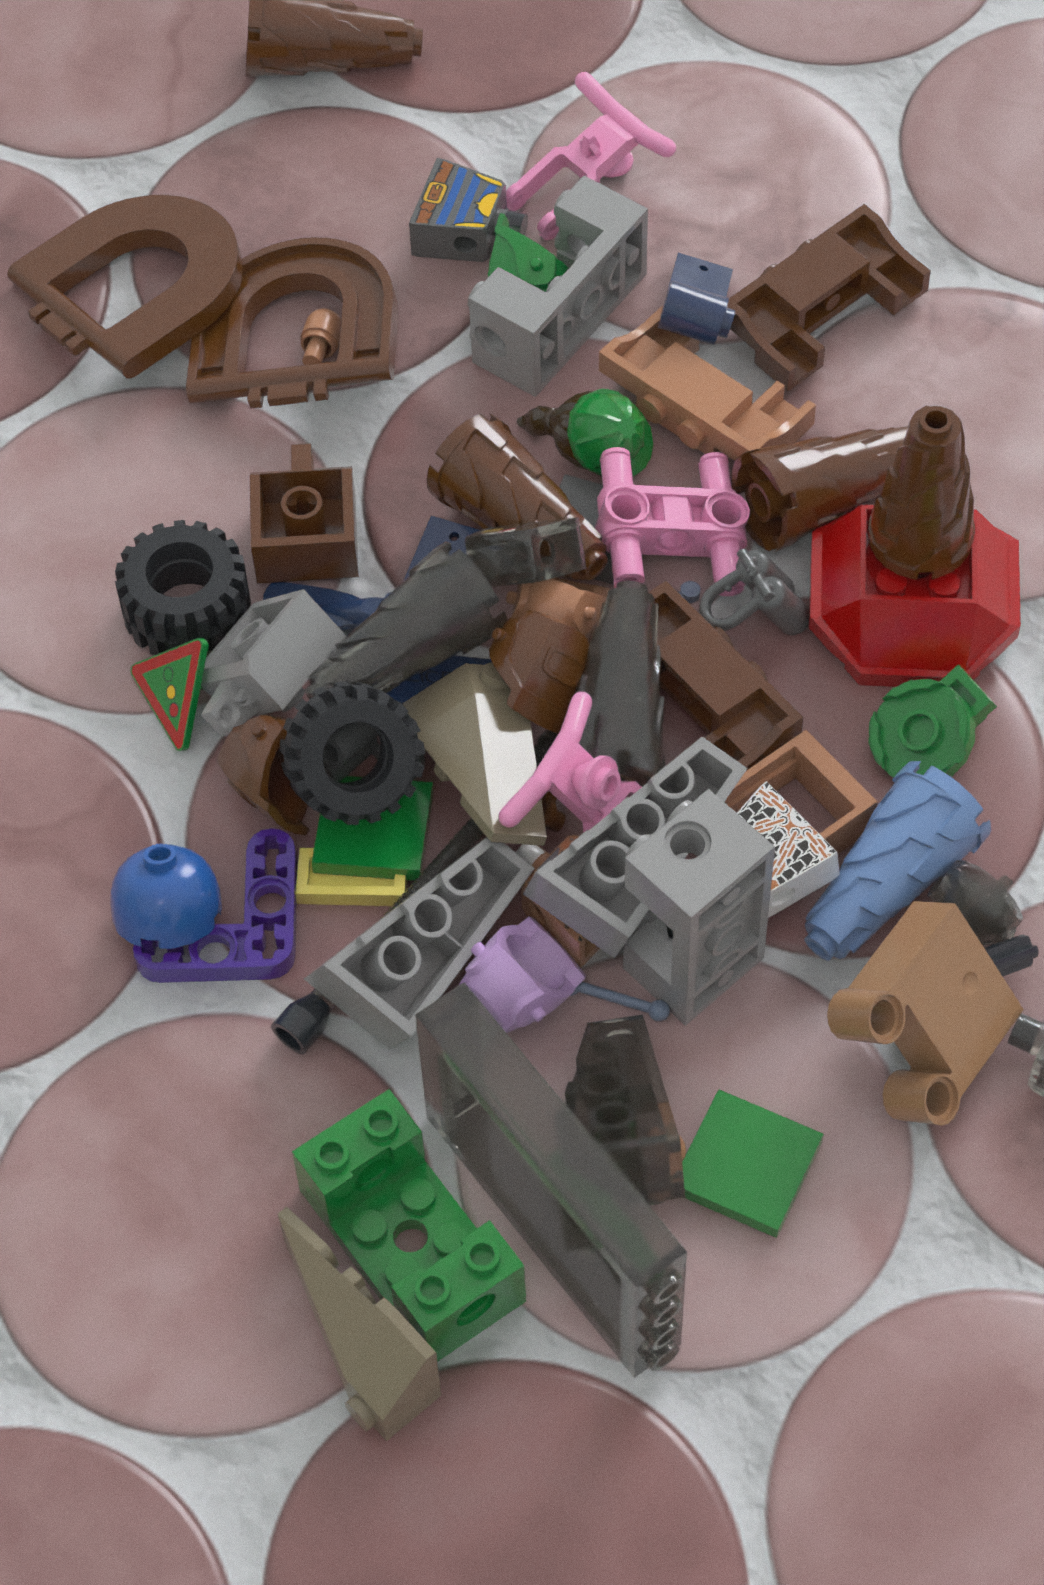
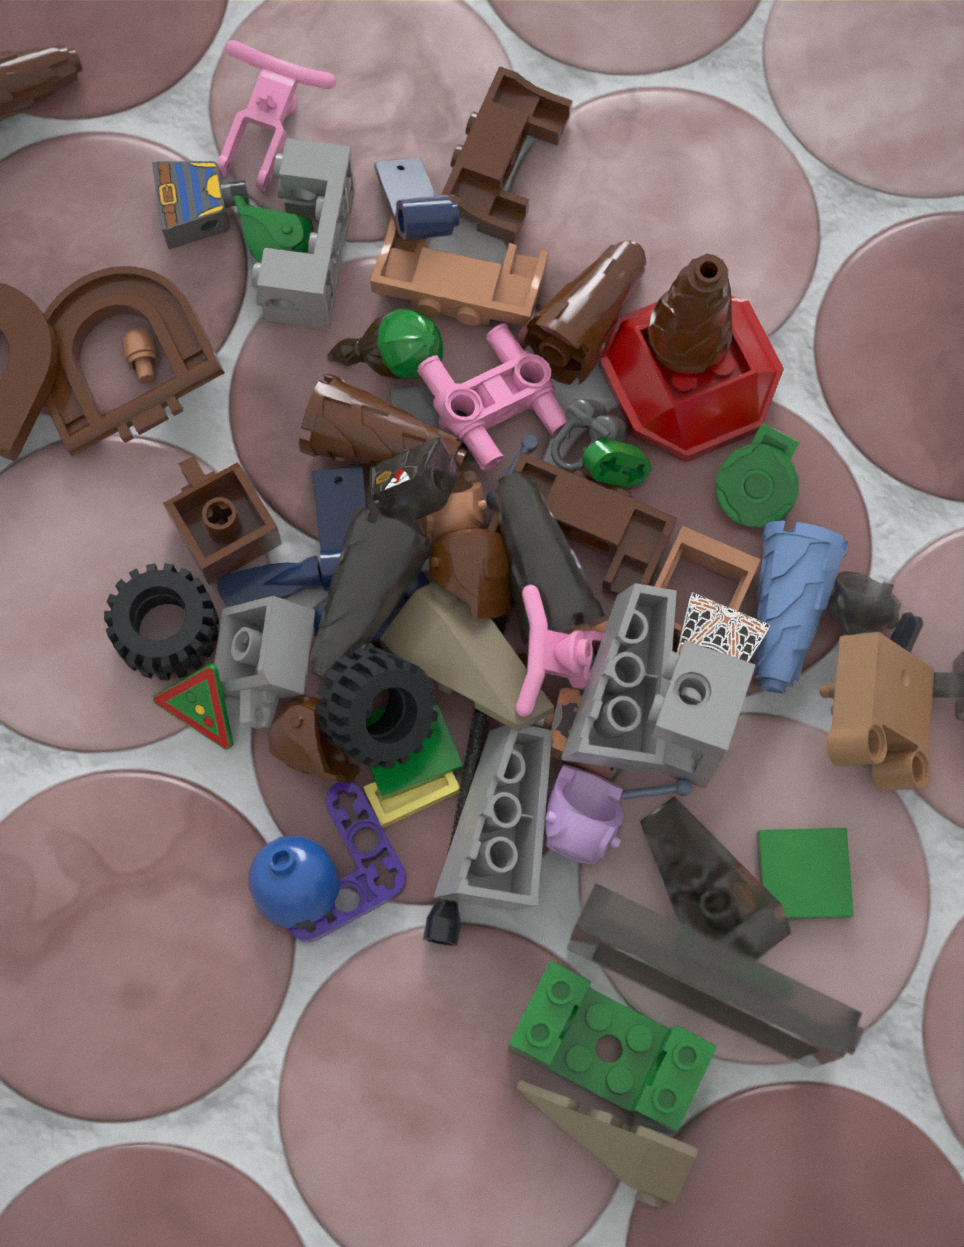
camera: 30 degrees left, 15 degrees up
(777, 633) = (616, 463): none -> green beam

